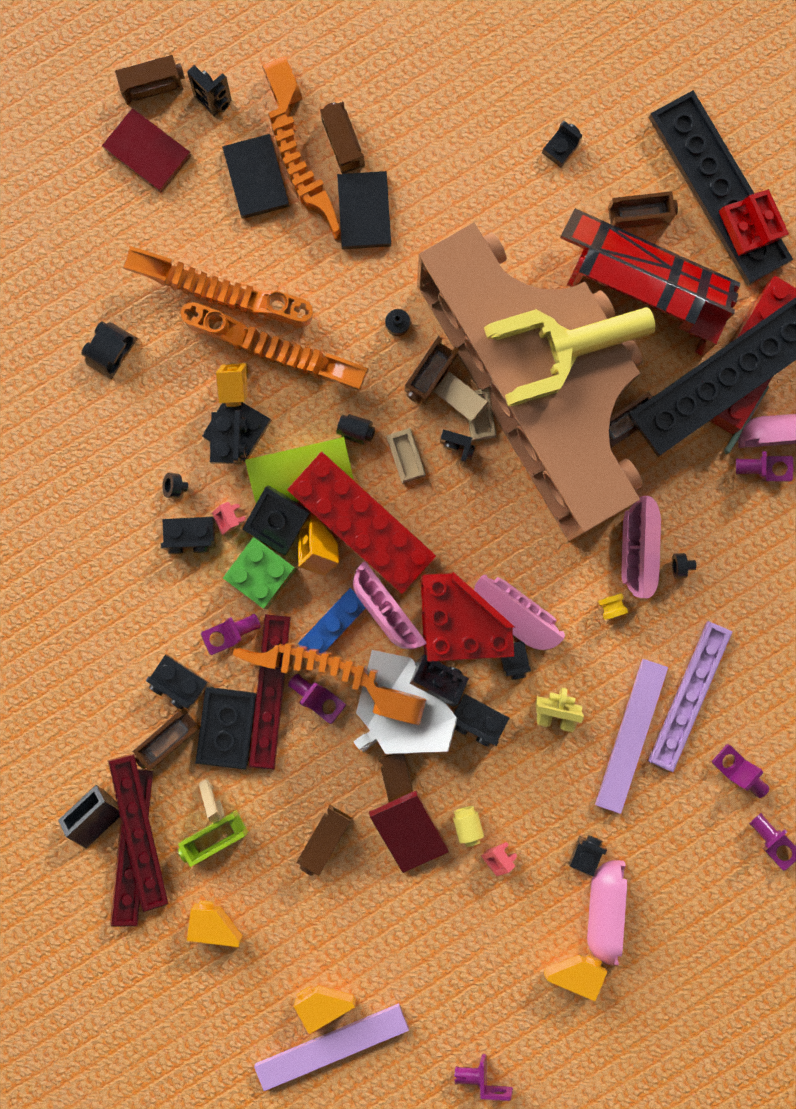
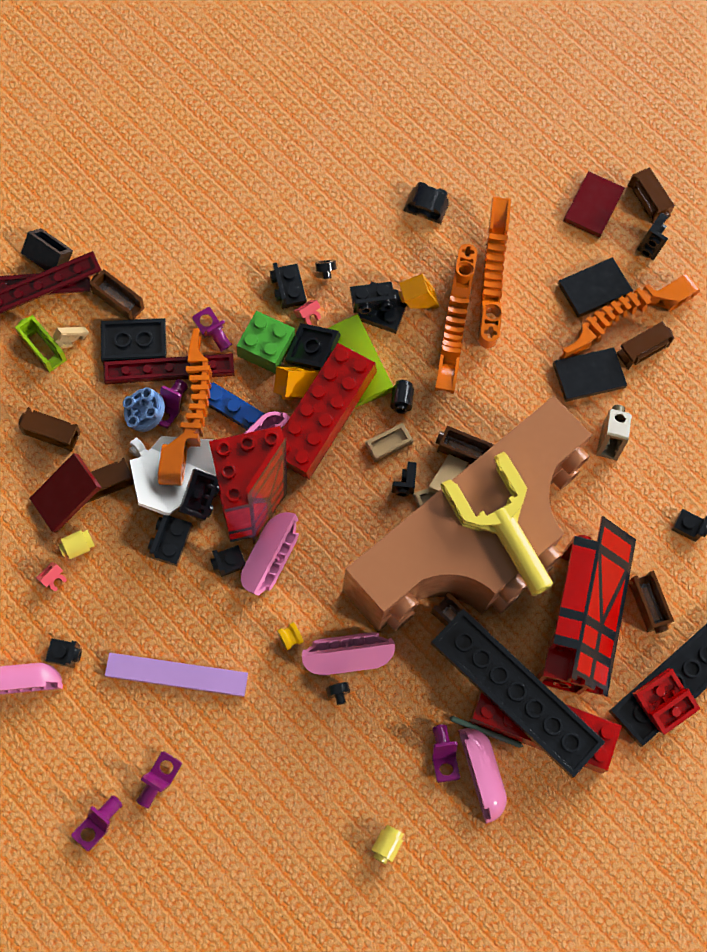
camera: 70 degrees right, 15 degrees down
(177, 683) = (164, 296): black bracket -> none
(320, 728) = (143, 409): none -> light blue tile
(399, 327) = (501, 416): black tile -> none
(444, 199) = (614, 426): none -> dark tan torso
(561, 707) = (192, 604): light yellow hips -> none
(690, 696) = (220, 722): lavender tile -> none

